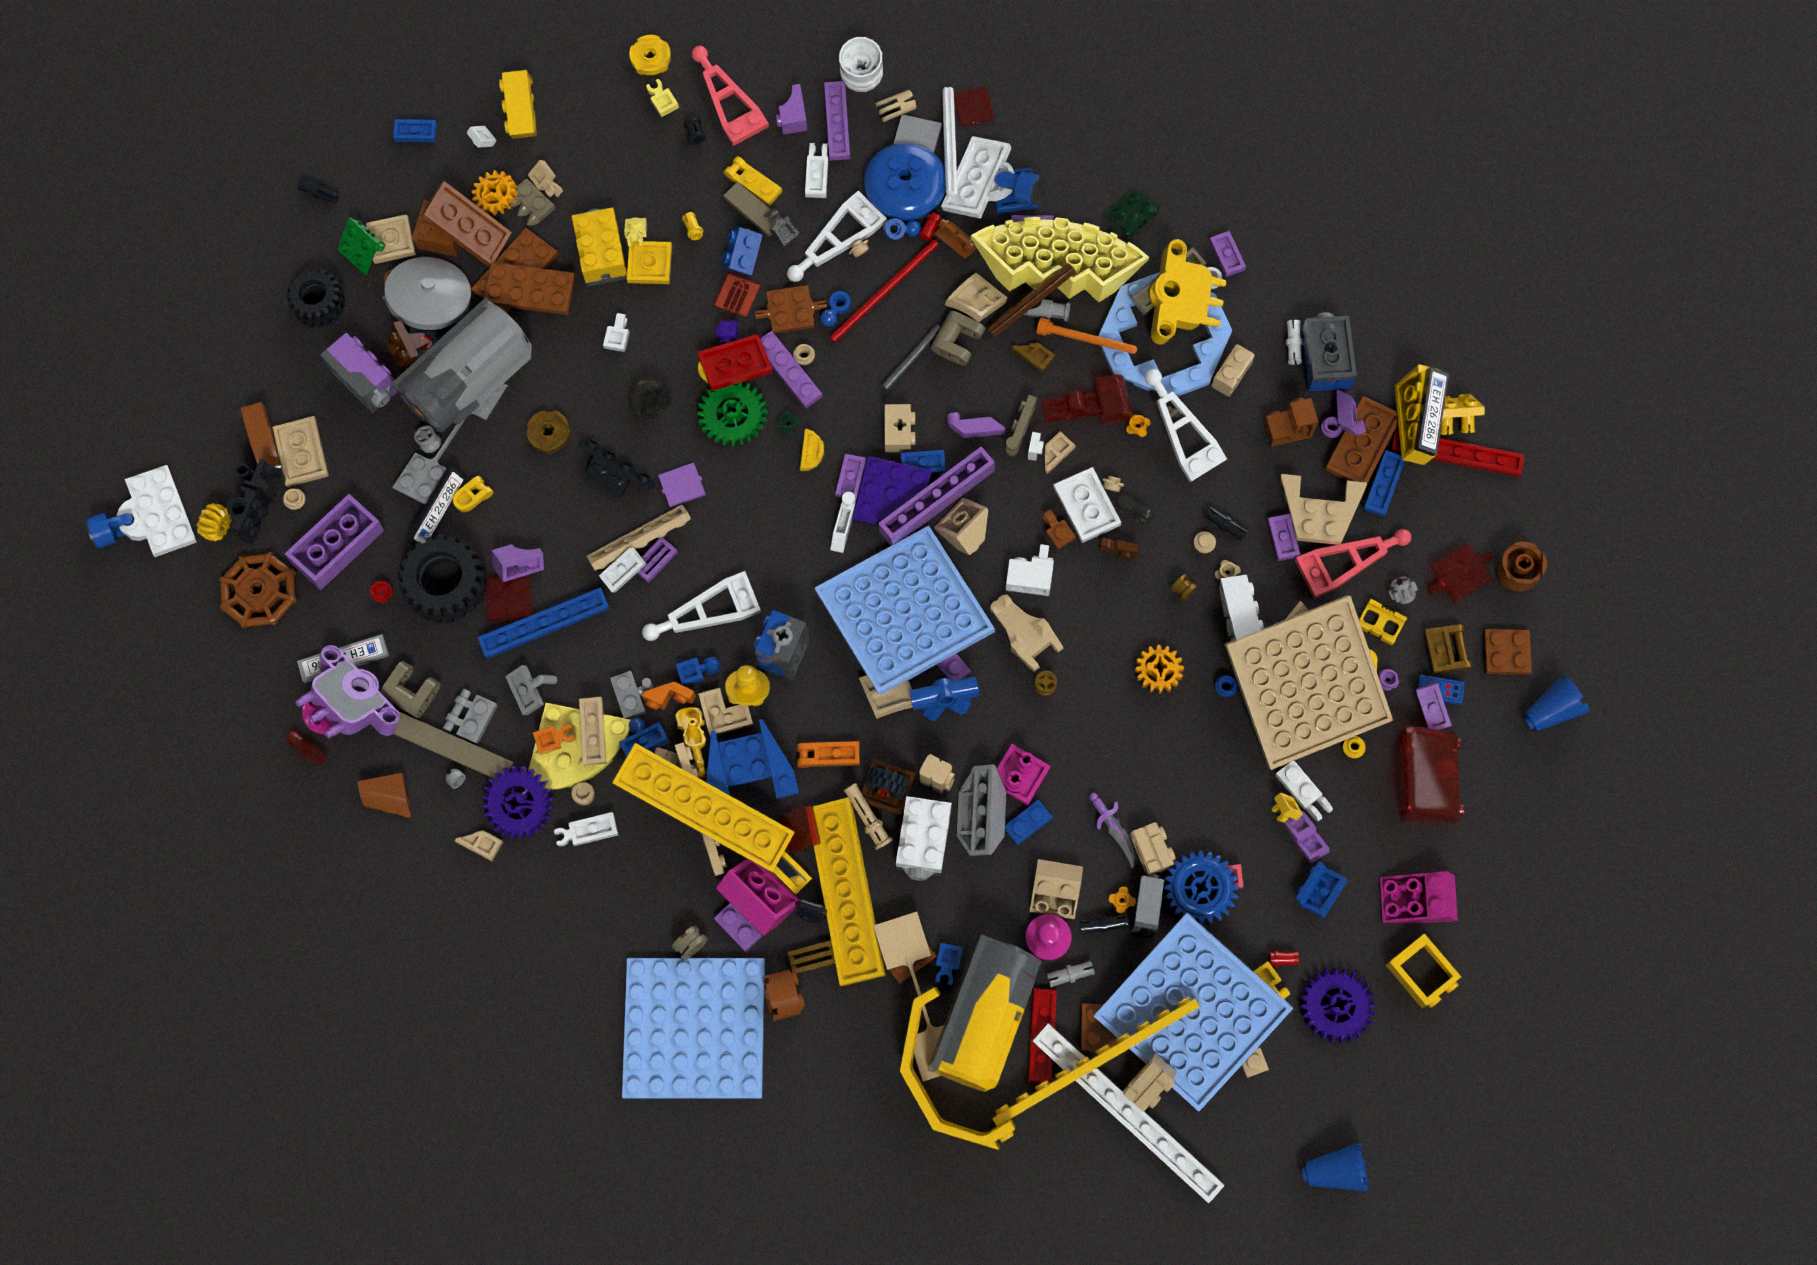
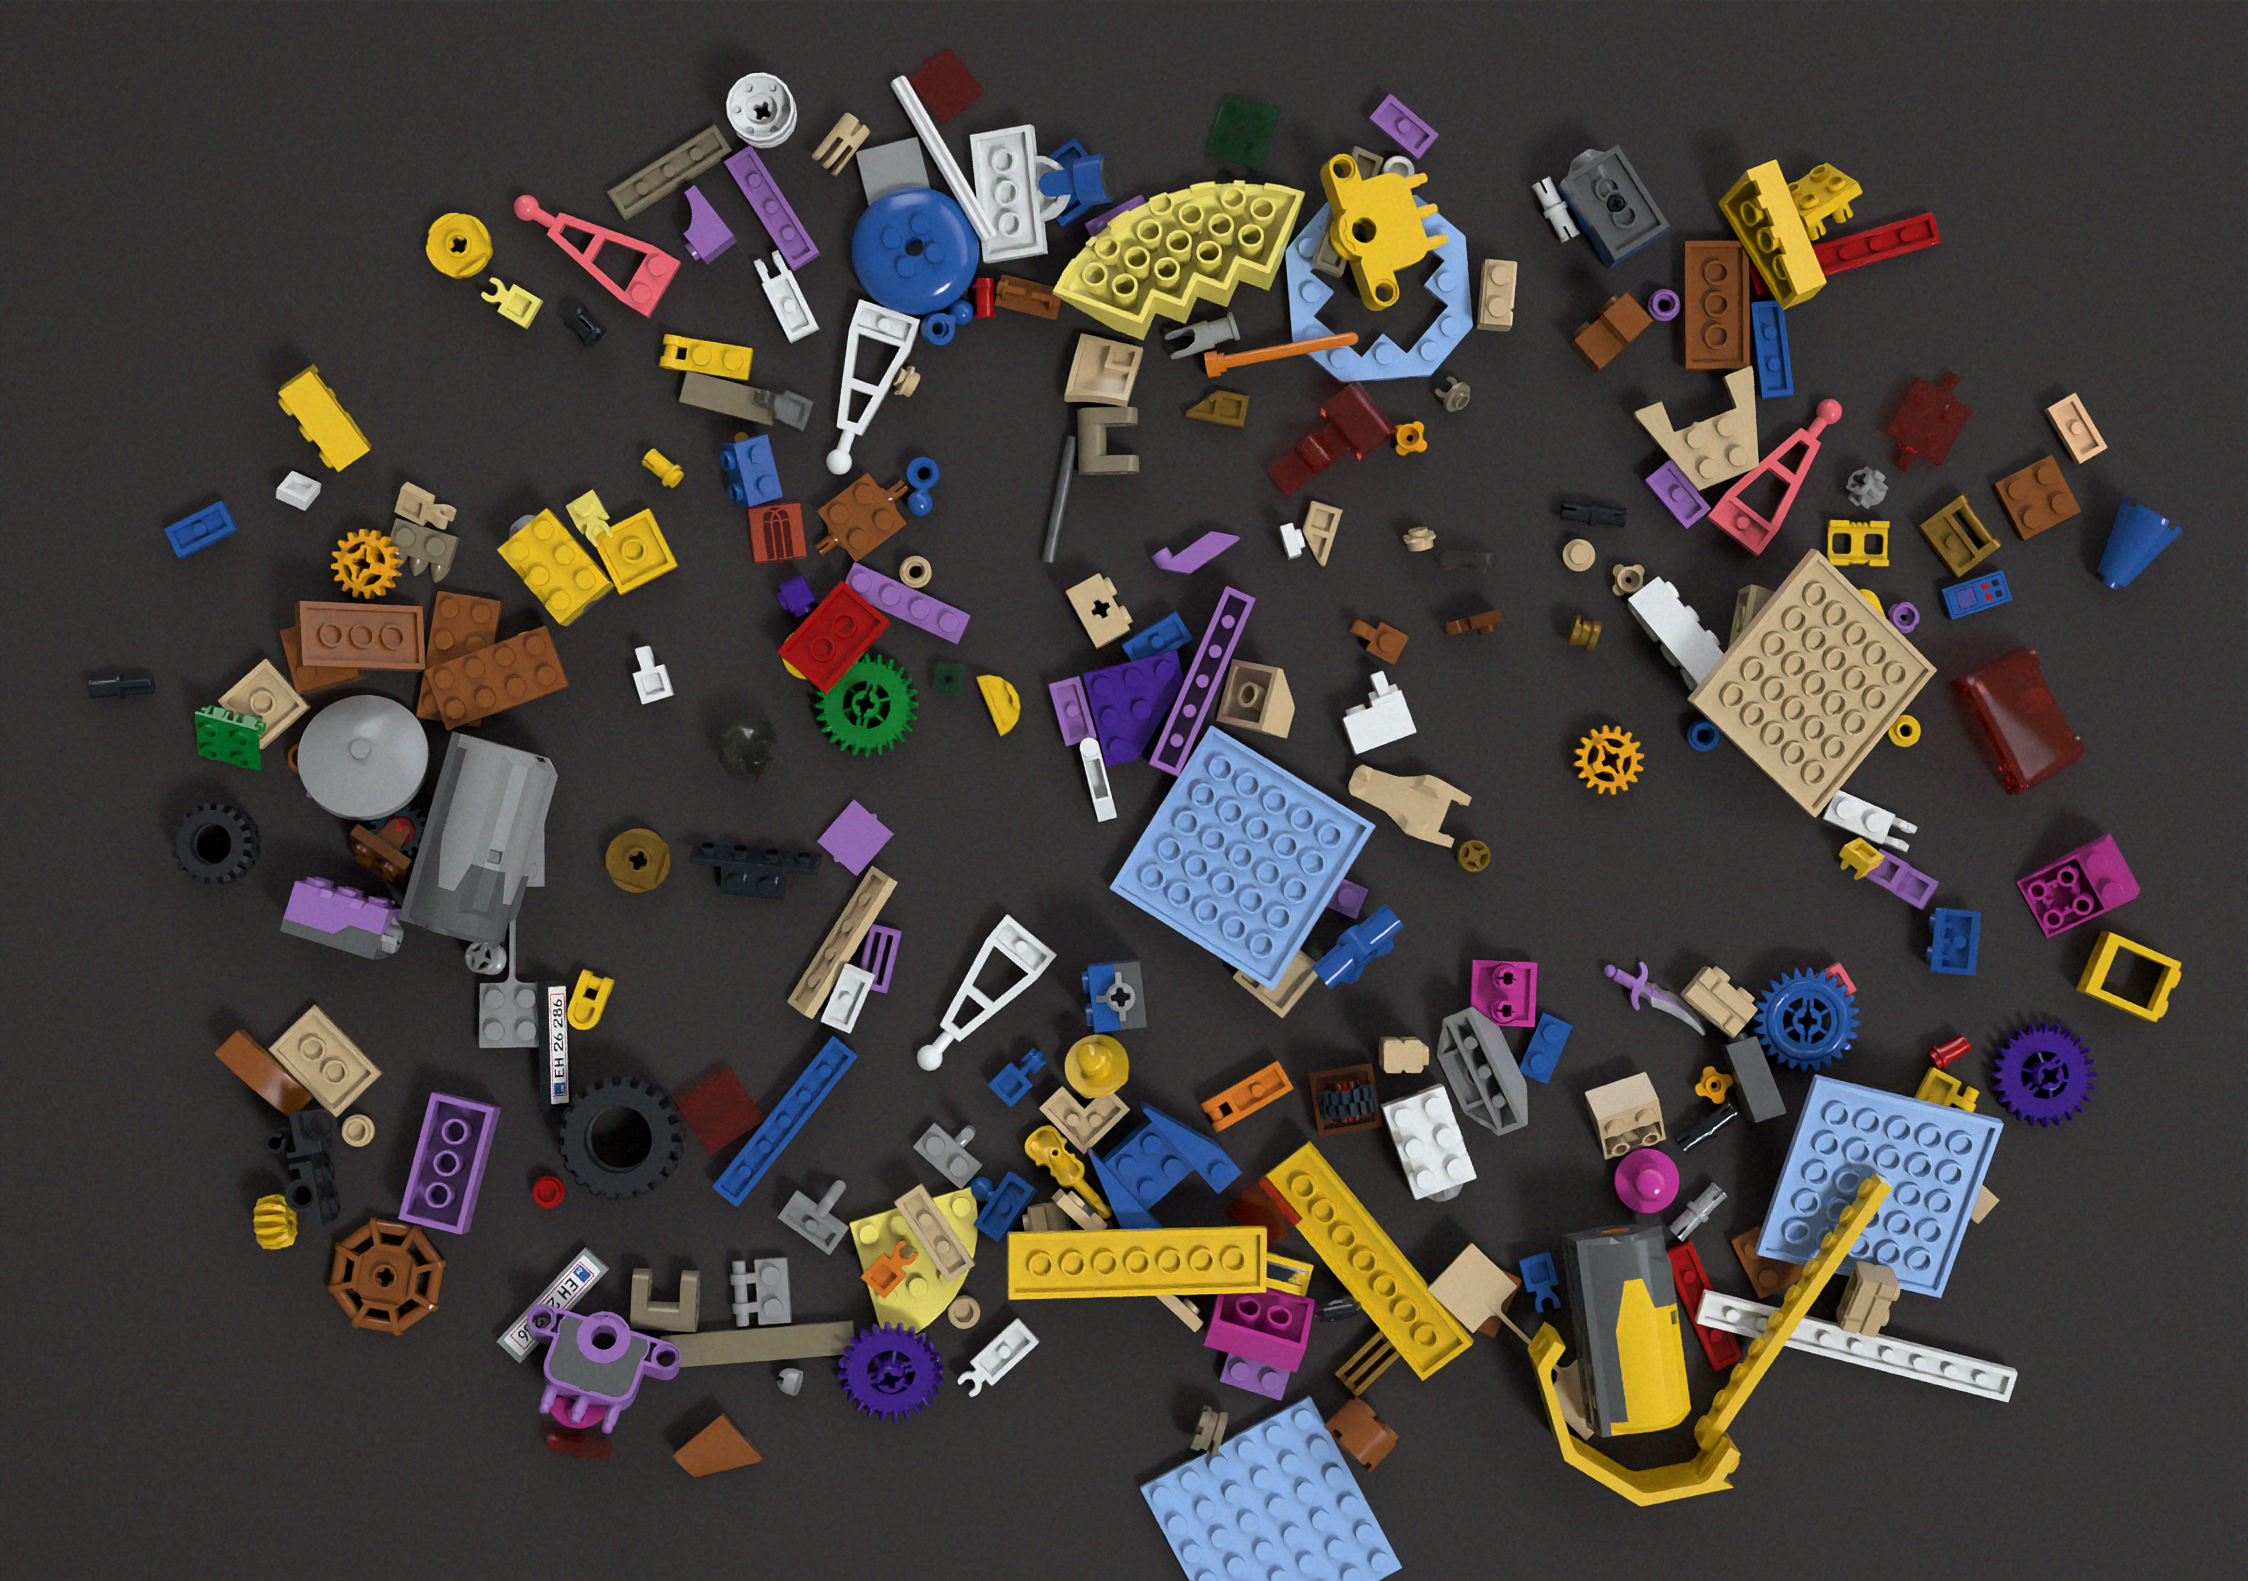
camera: 30 degrees left, 15 degrees up
(150, 514) = (181, 1251): white plate -> none
(481, 843) = (873, 1444): tan tile -> none
(515, 562) = (703, 1064): medium lavender arch -> none
(660, 696) = (992, 1138): orange slope -> none
(790, 75) = (670, 172): none -> dark tan tile
(873, 826) = (1354, 1158): tan pin -> none
(883, 291) = (971, 423): red piece -> none
(1020, 426) = (1257, 523): dark tan plate -> none
(1031, 299) = (1181, 339): reddish brown axle -> none
(1087, 505) = (1401, 585): white plate -> none
(1203, 459) = (1517, 444): white plate -> none
(1338, 1170) = (2145, 1280): blue cone -> none
(1348, 414) = (1679, 280): medium lavender piece -> none
(1431, 411) = (1794, 228): tile -> none
(1433, 707) = (1980, 627): medium lavender plate -> none
(1527, 575) = (2002, 357): dark orange brick -> none
(1552, 622) = (2075, 428): none -> light nougat plate

